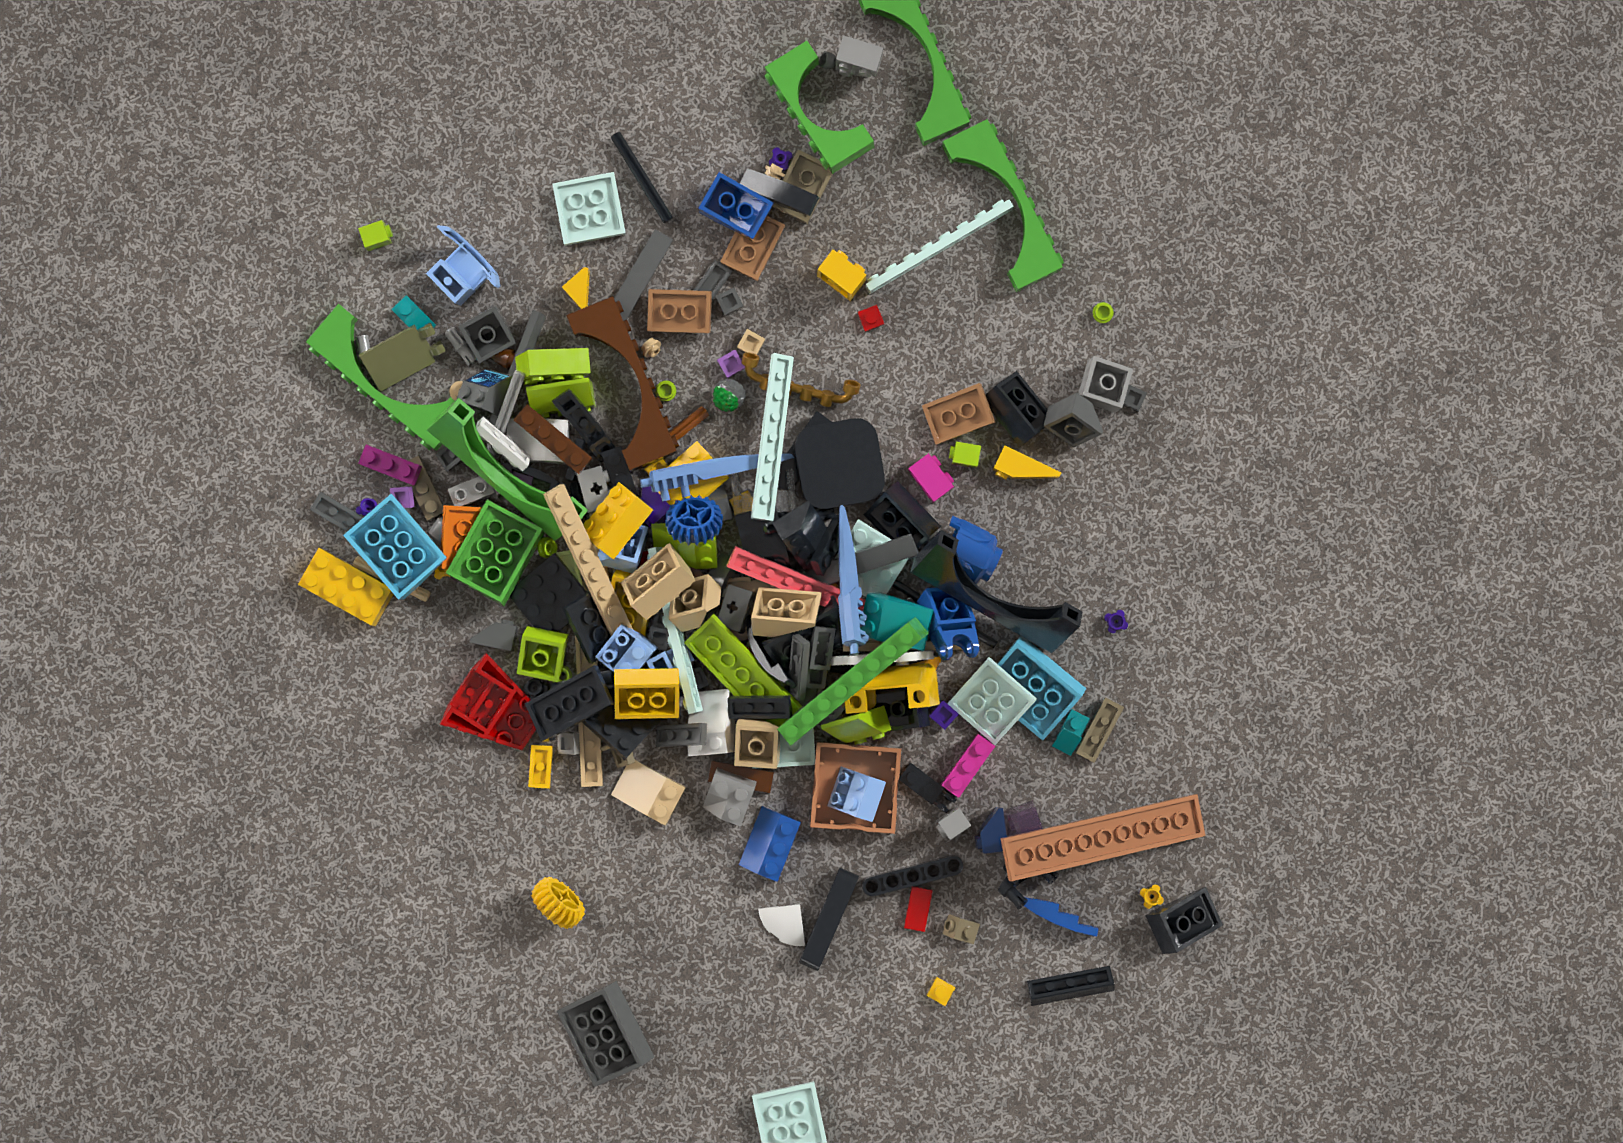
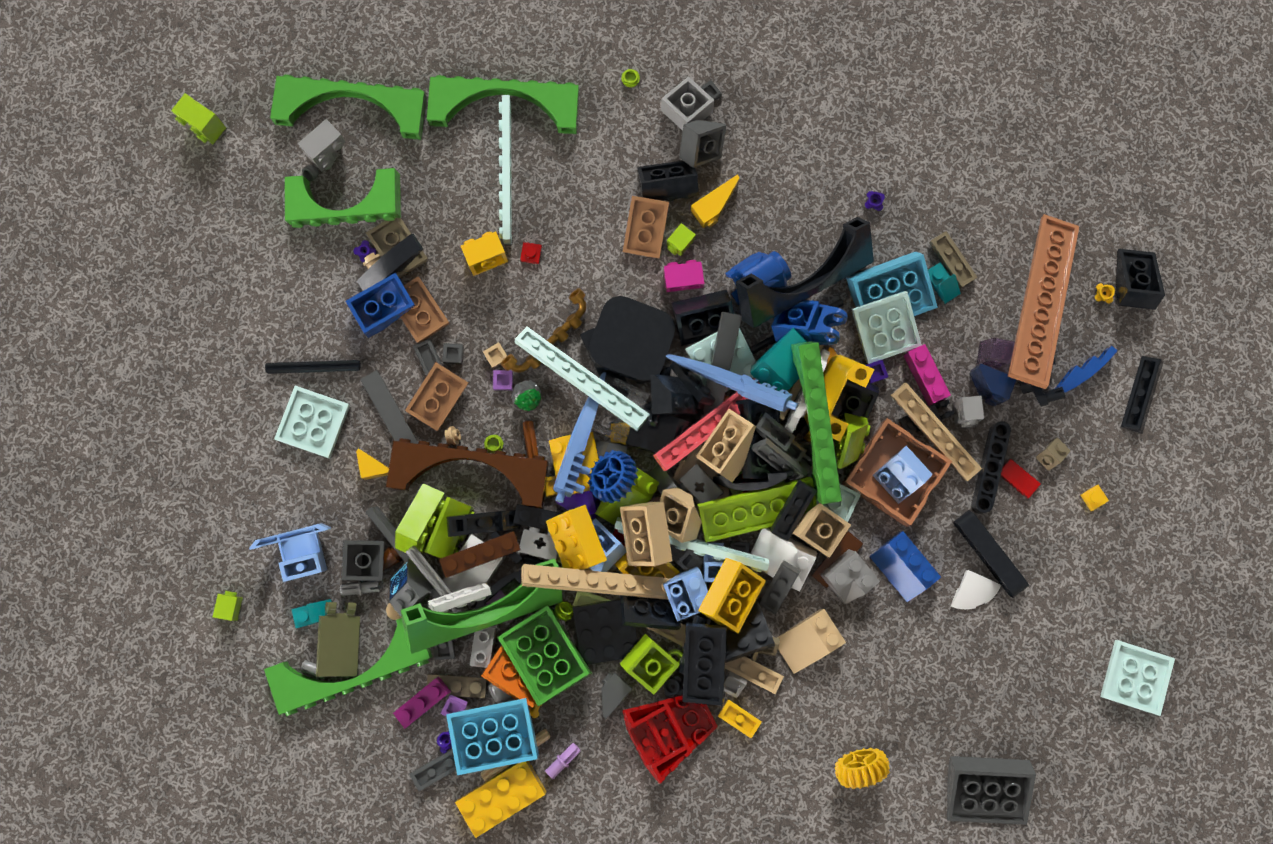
camera: 60 degrees left, 5 degrees down
(410, 625) = (563, 760): none -> lavender axle
(915, 803) = (936, 431): none -> tan plate

